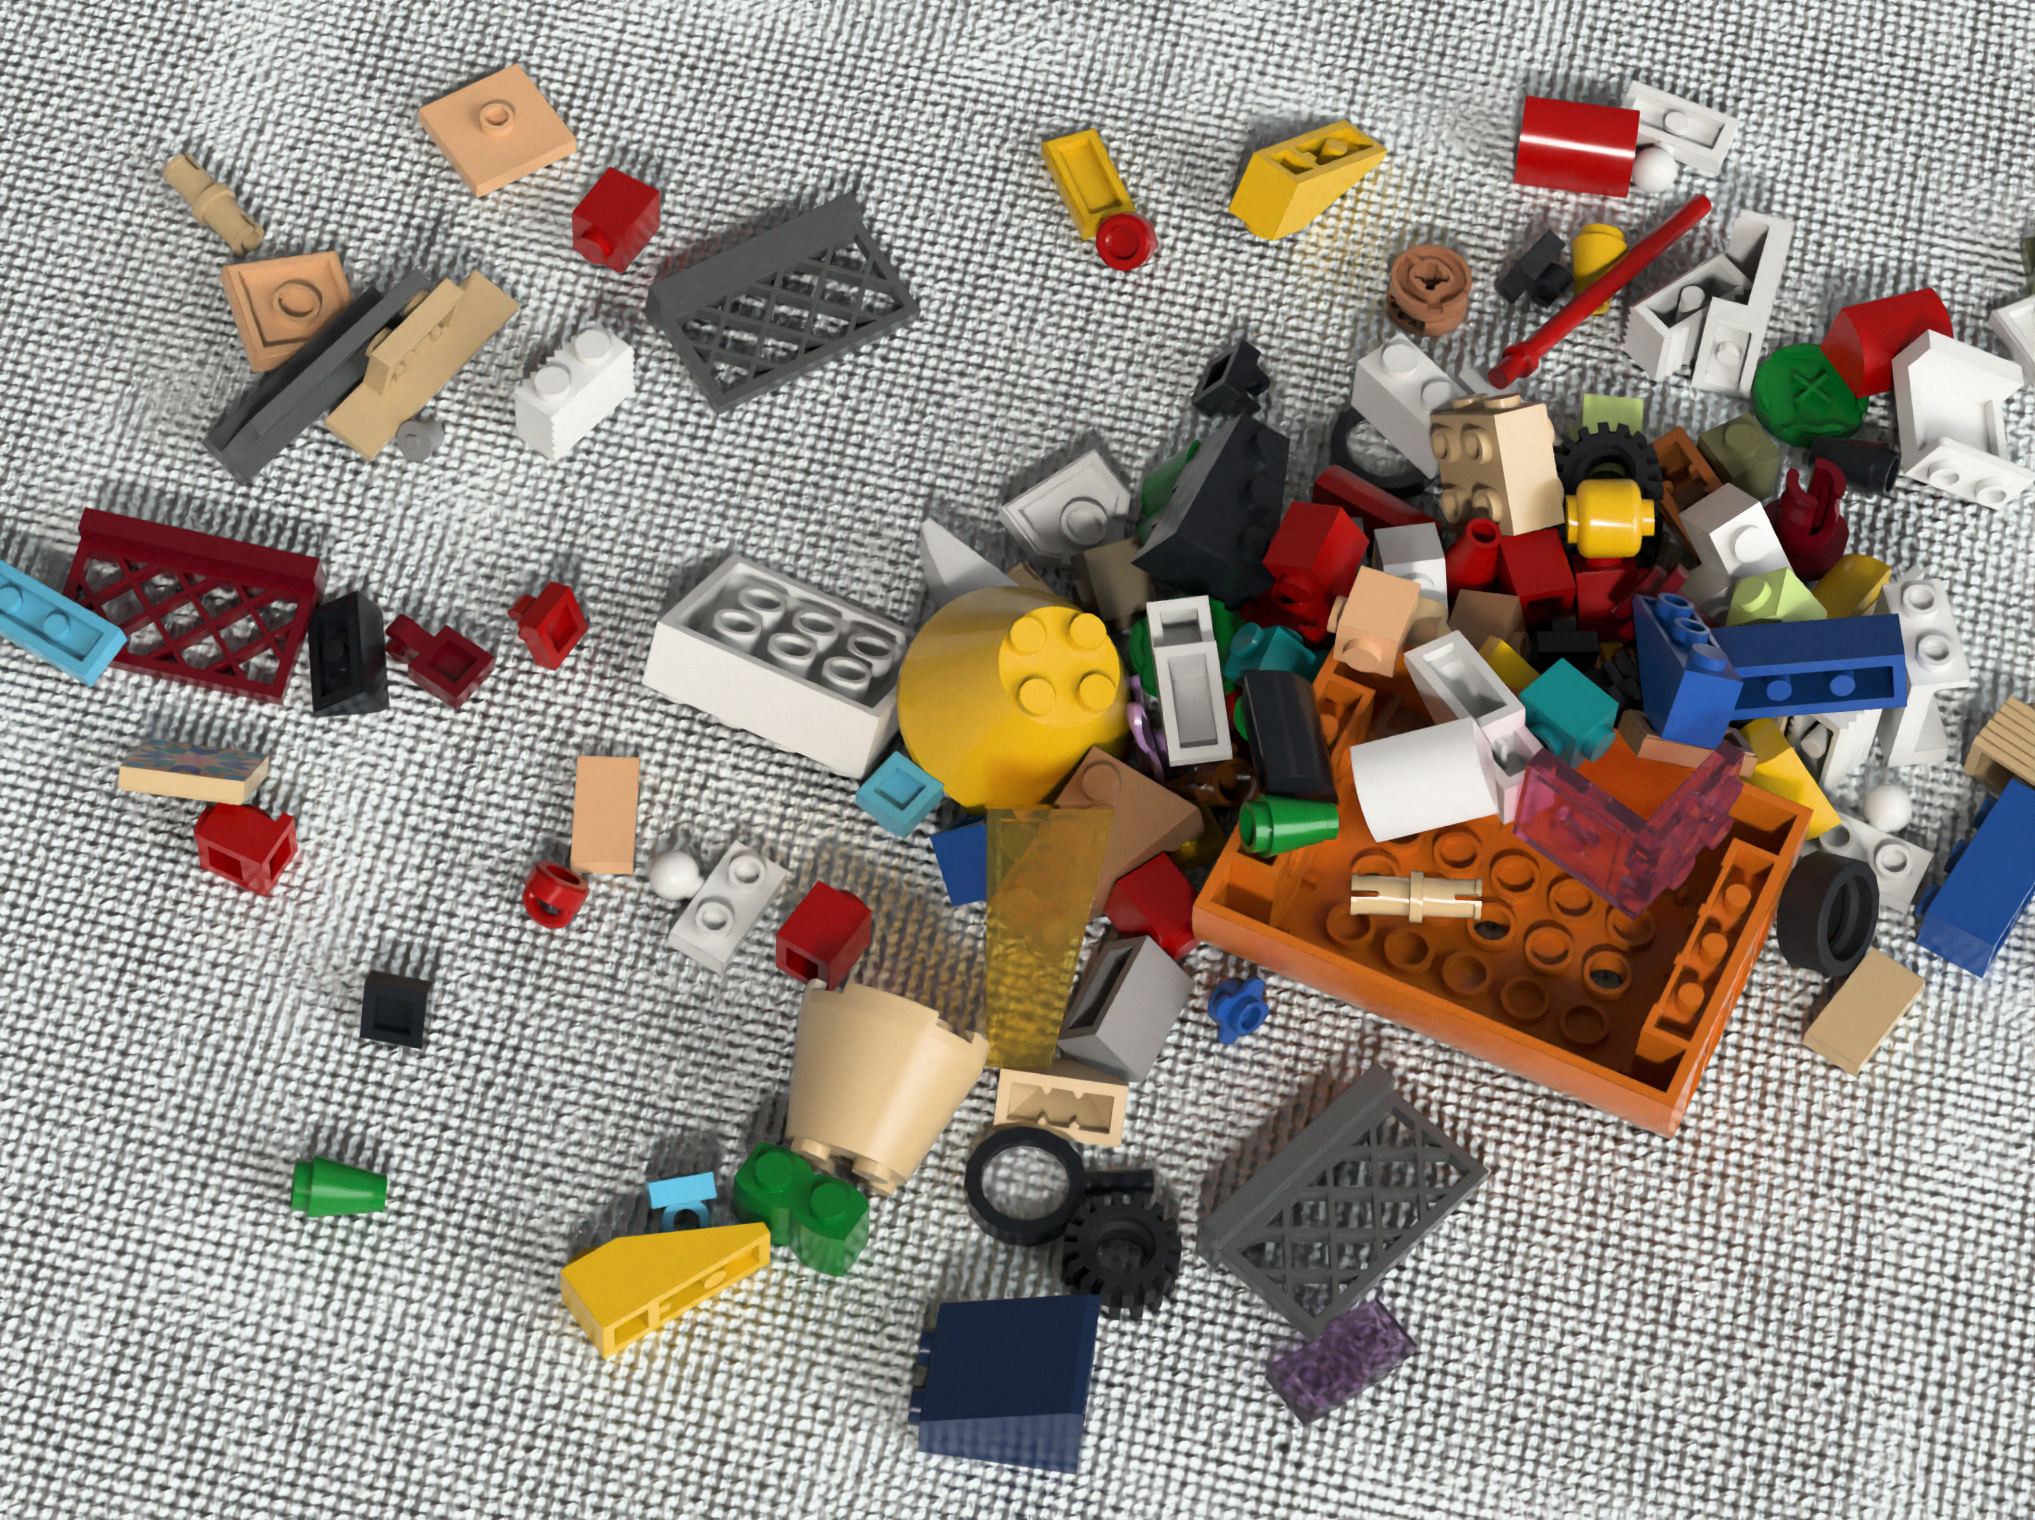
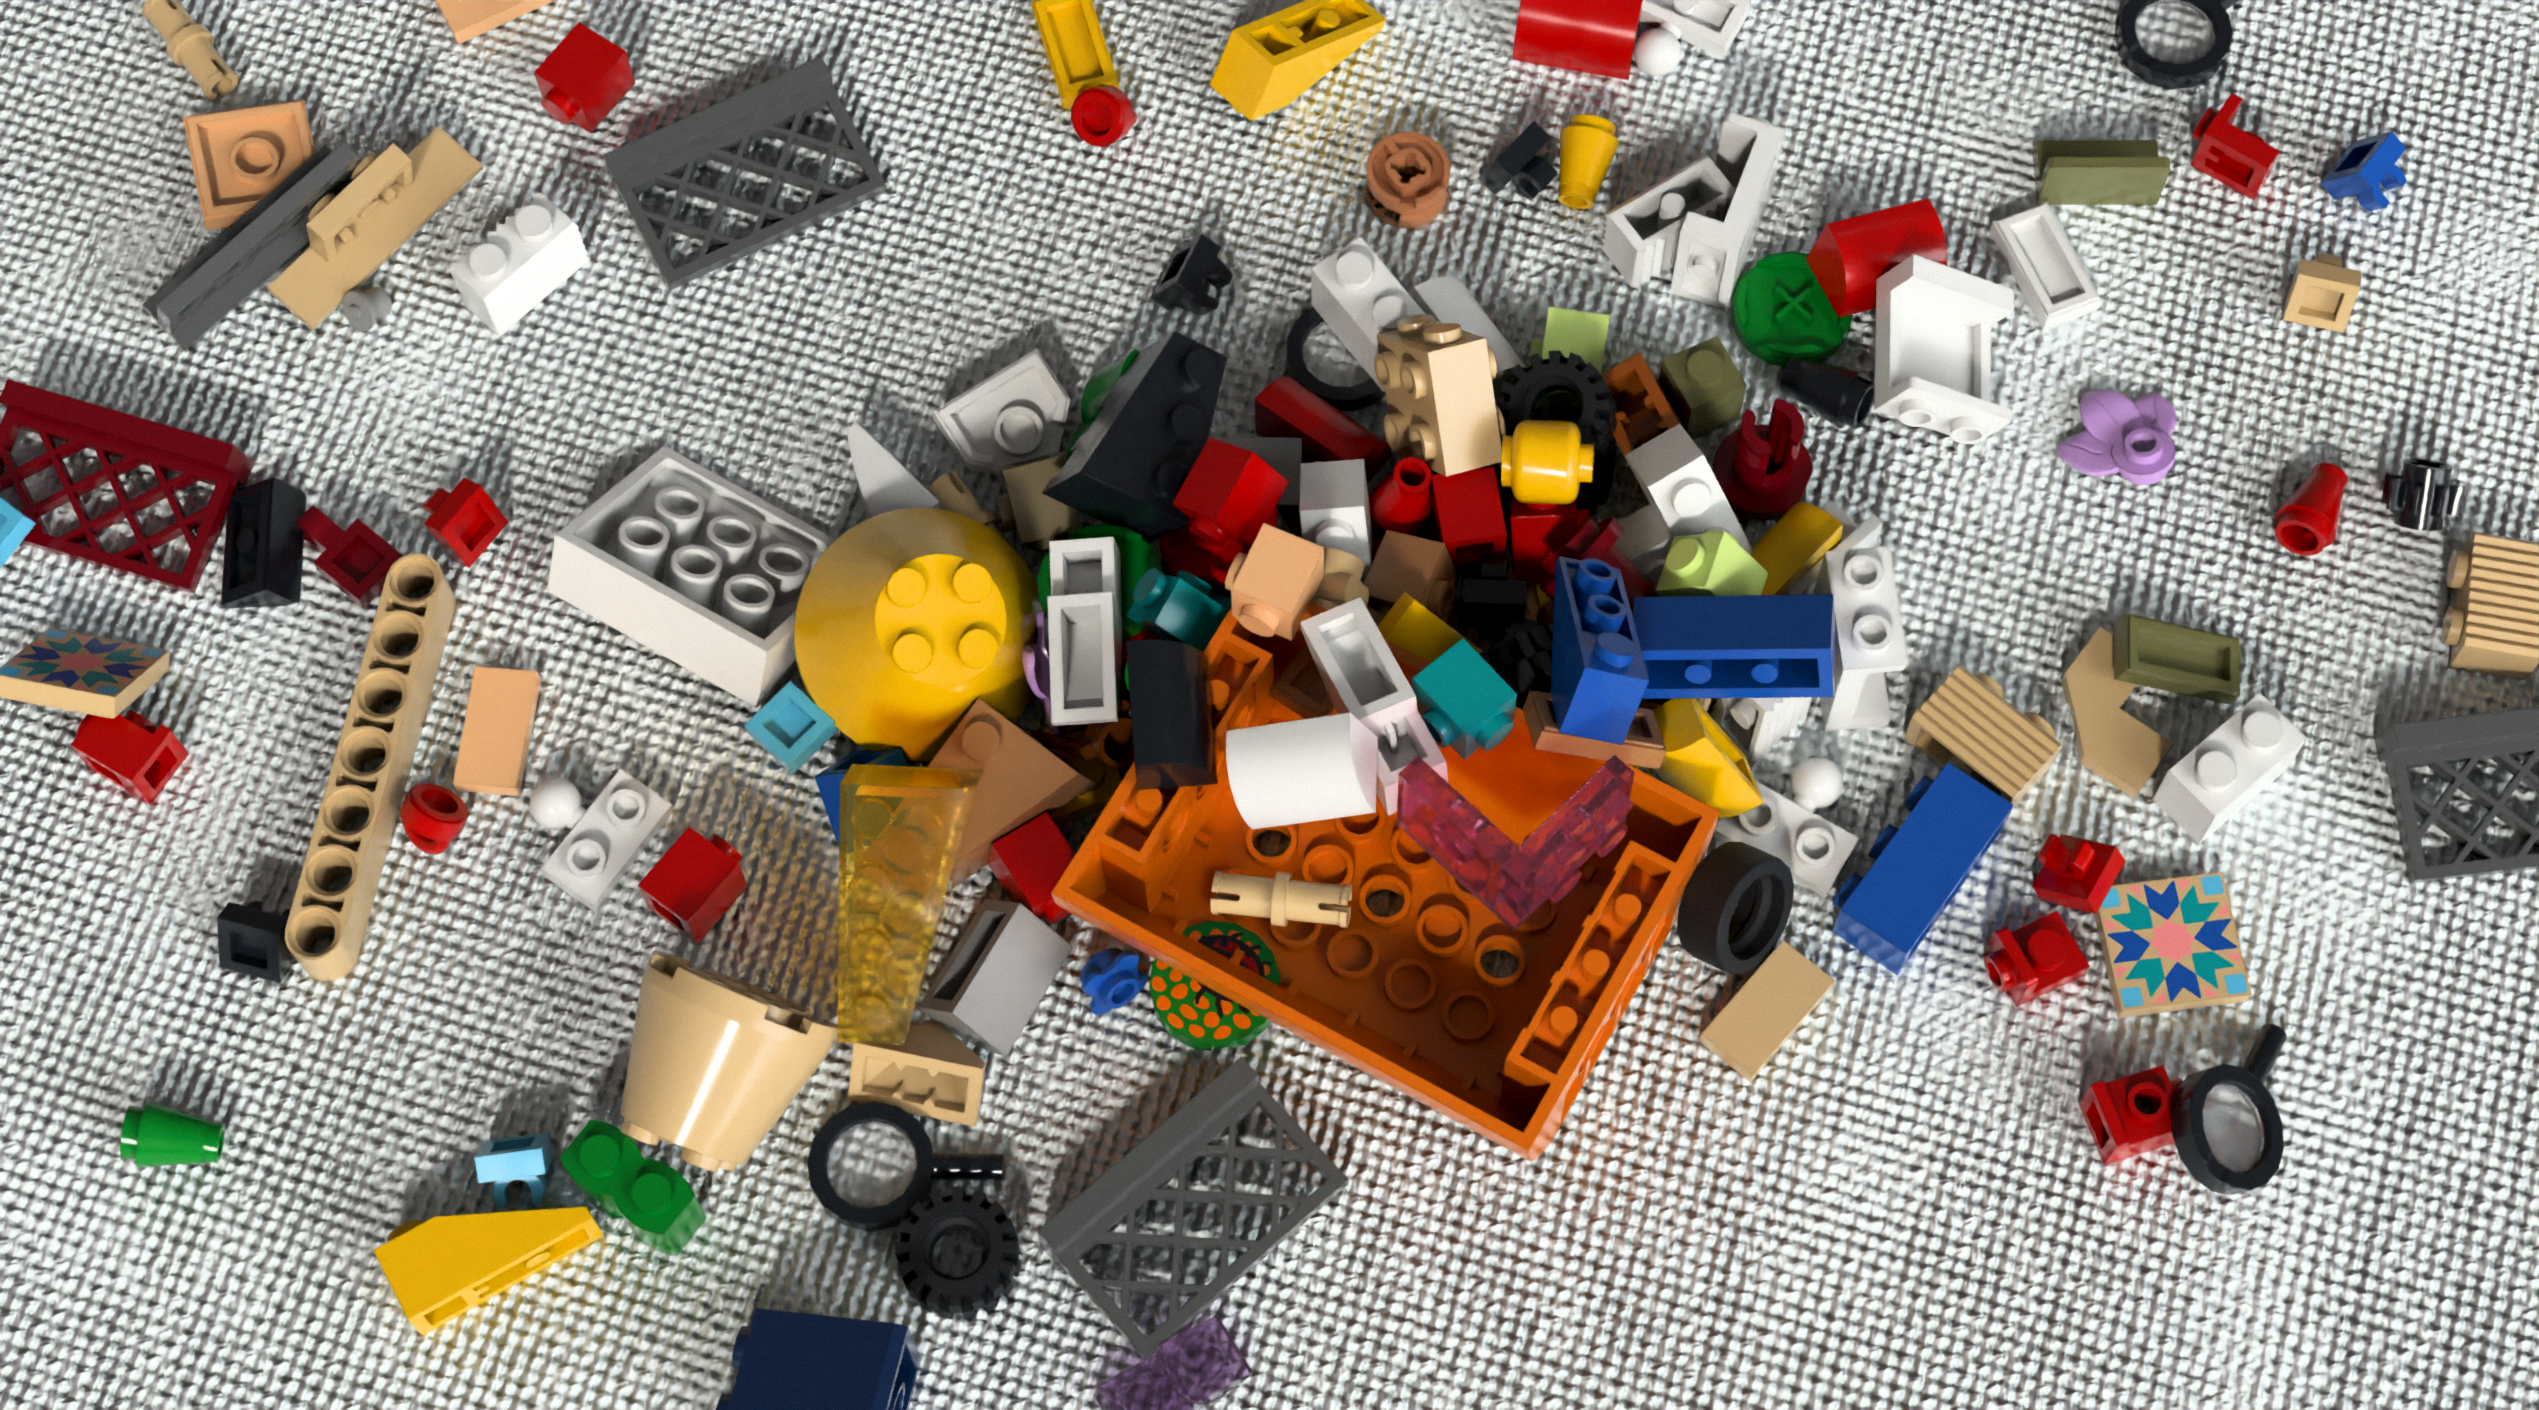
camera: 10 degrees right, 10 degrees up
(492, 870) = (373, 792): none -> tan beam
(1285, 824) = (1155, 809): green cone -> none
(1328, 1029) = (1201, 1014): none -> tile
(1523, 357) = (1484, 269): red bar -> none

